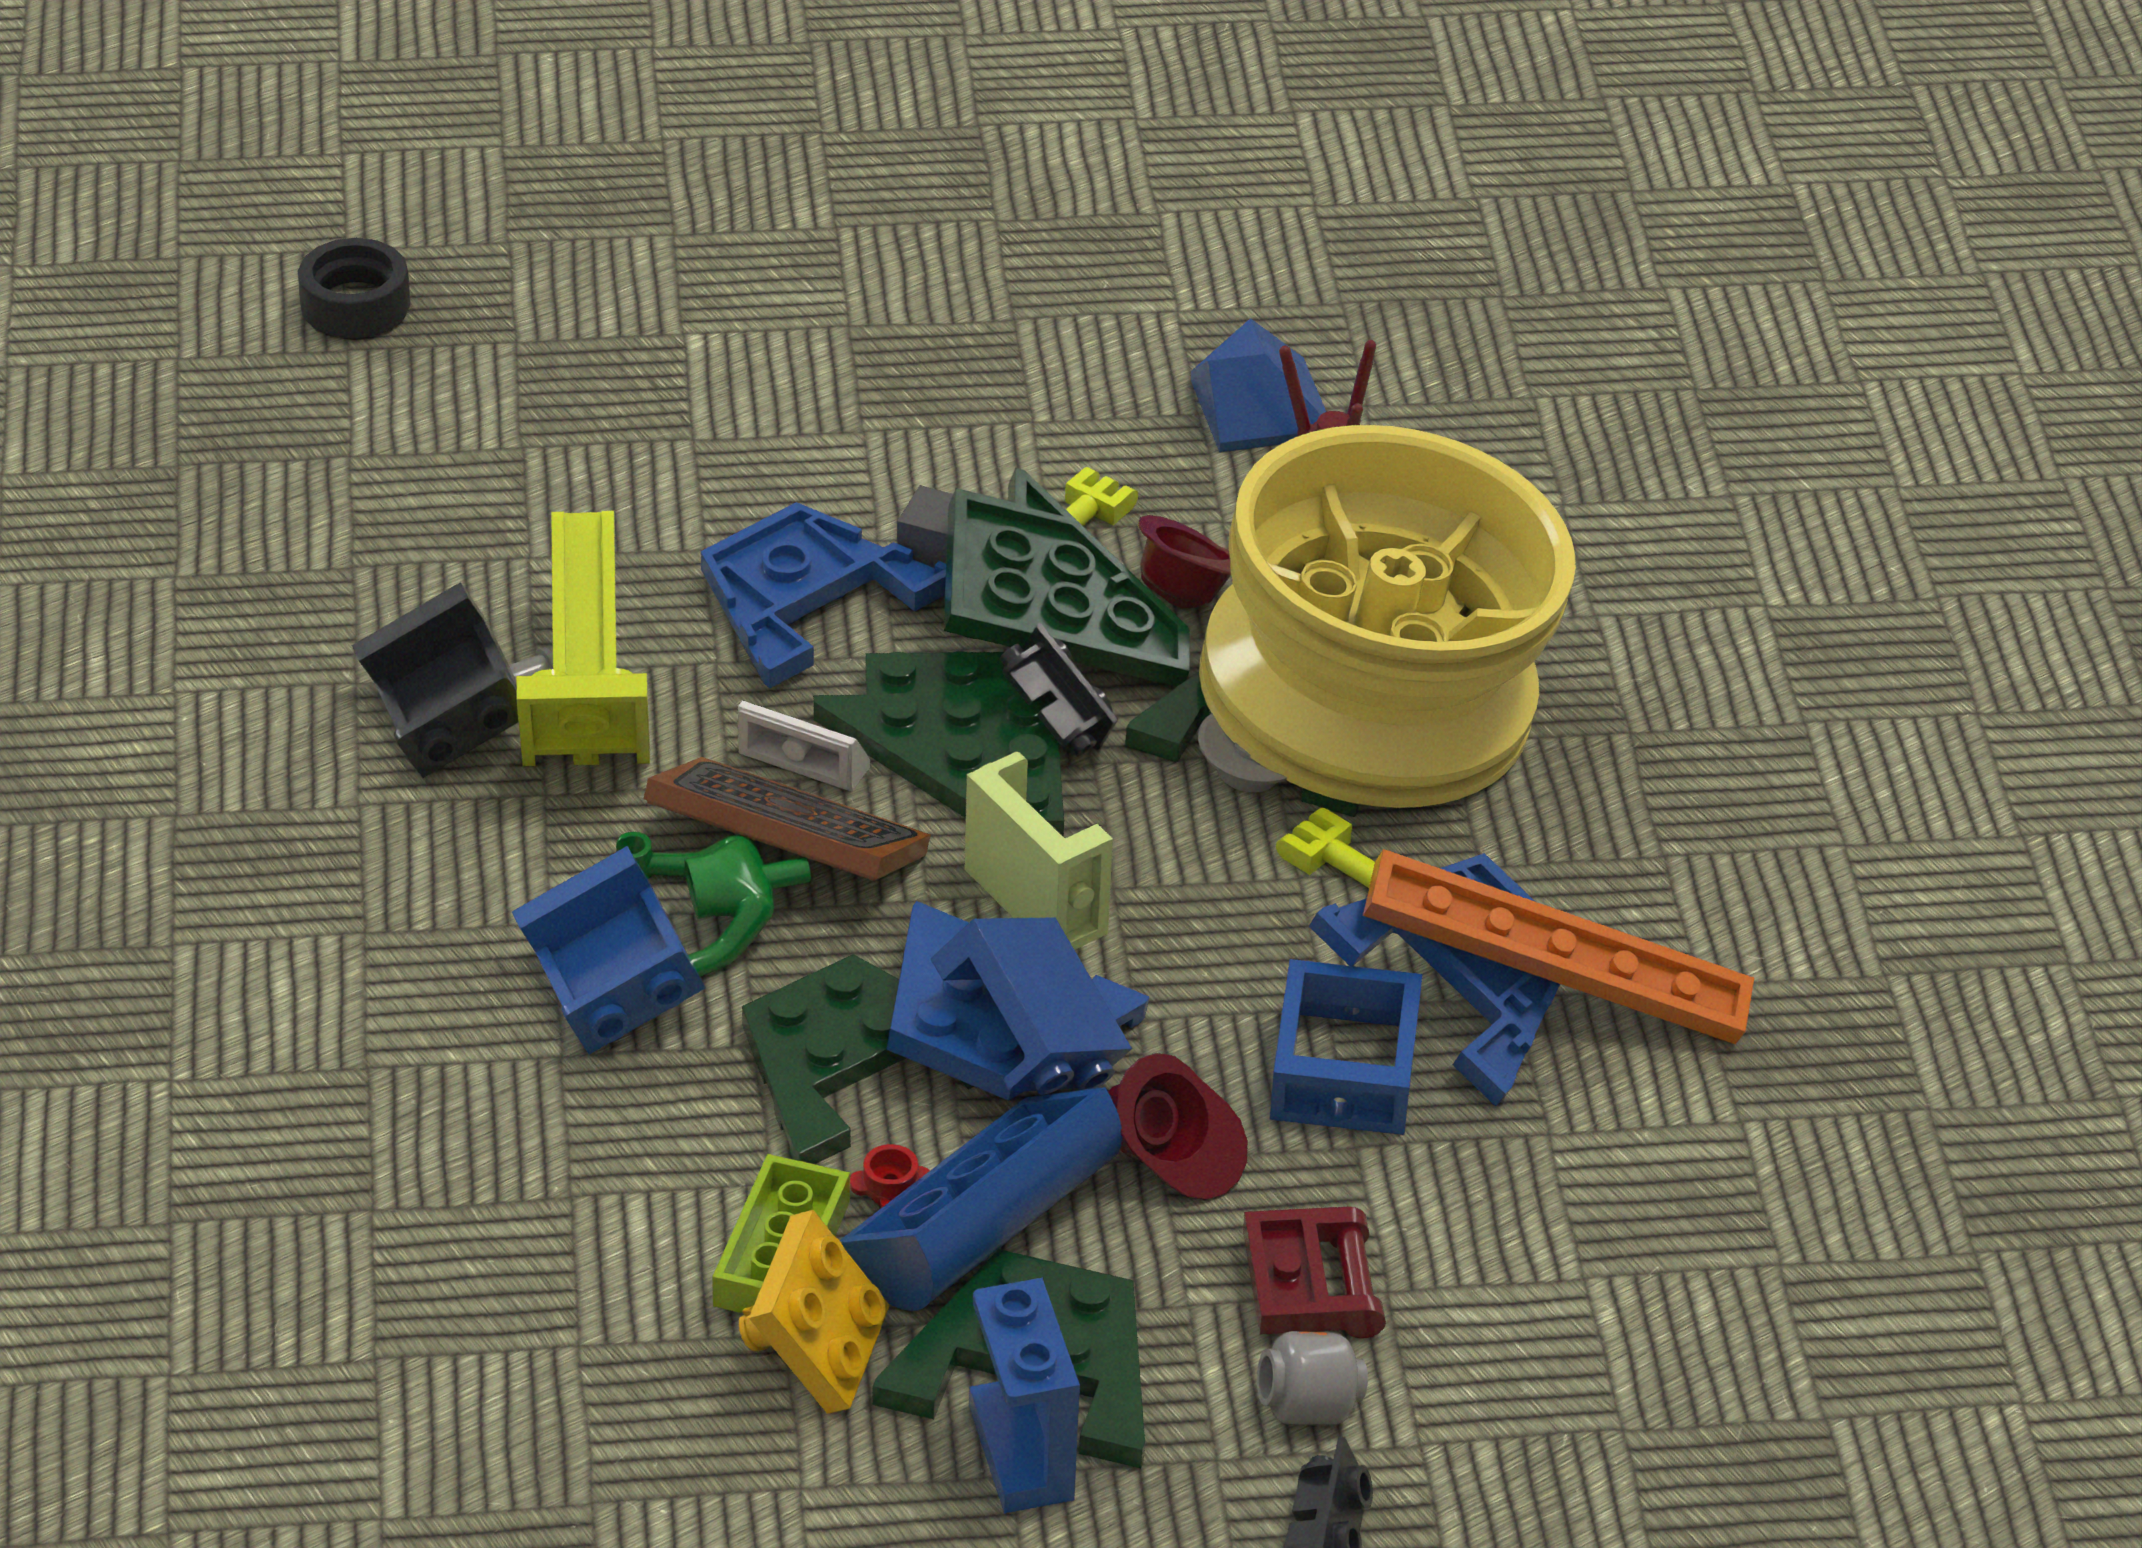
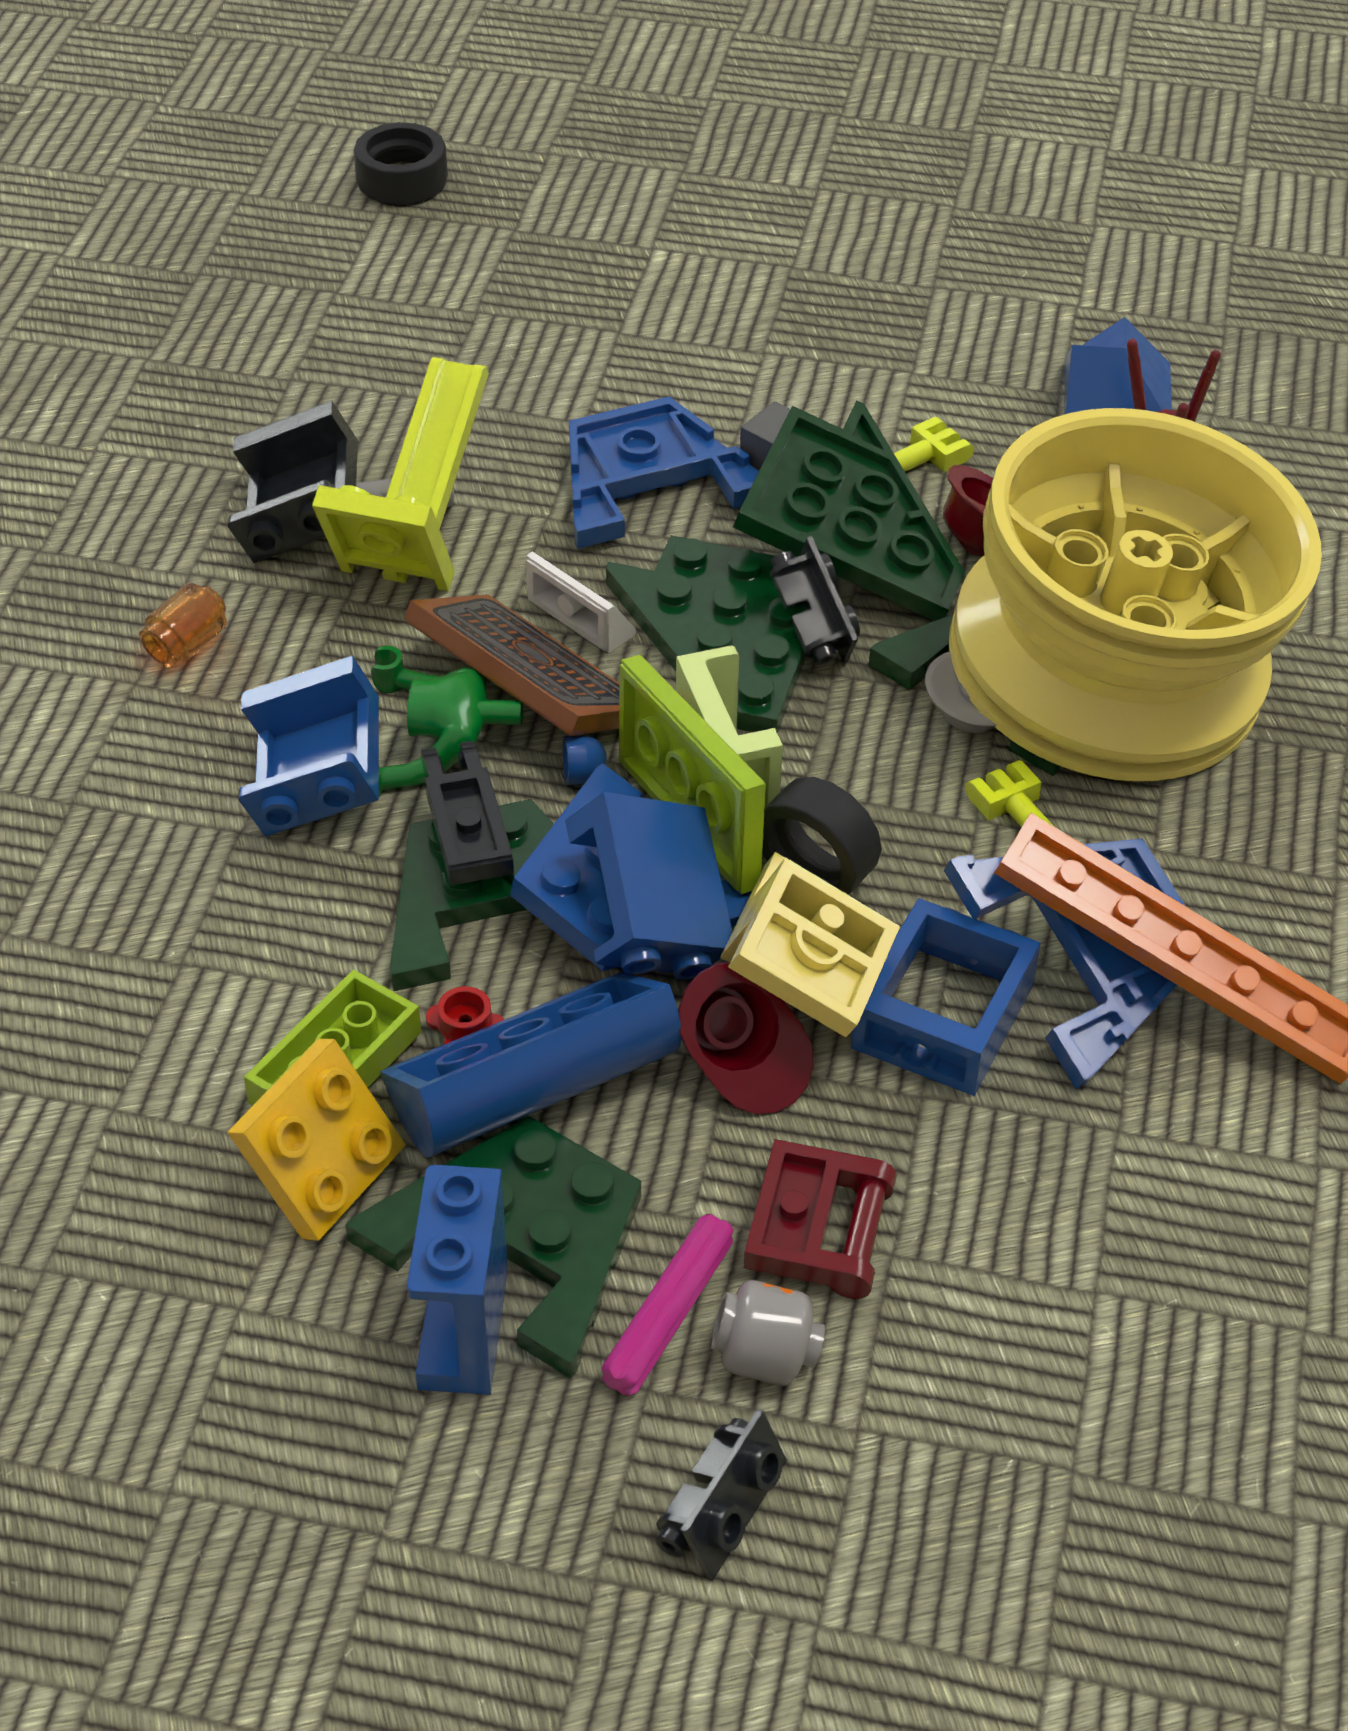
camera: 20 degrees right, 5 degrees up
(395, 858) = (183, 624): none -> clear orange brick
(808, 980) = (466, 817): none -> black hinge
(884, 904) = (581, 758): none -> blue hinge
(994, 868) = (688, 763): none -> lime tile
(1176, 893) = (836, 818): none -> black tyre
(1205, 1380) = (667, 1305): none -> dark pink axle
(1211, 1020) = (810, 944): none -> light yellow bracket

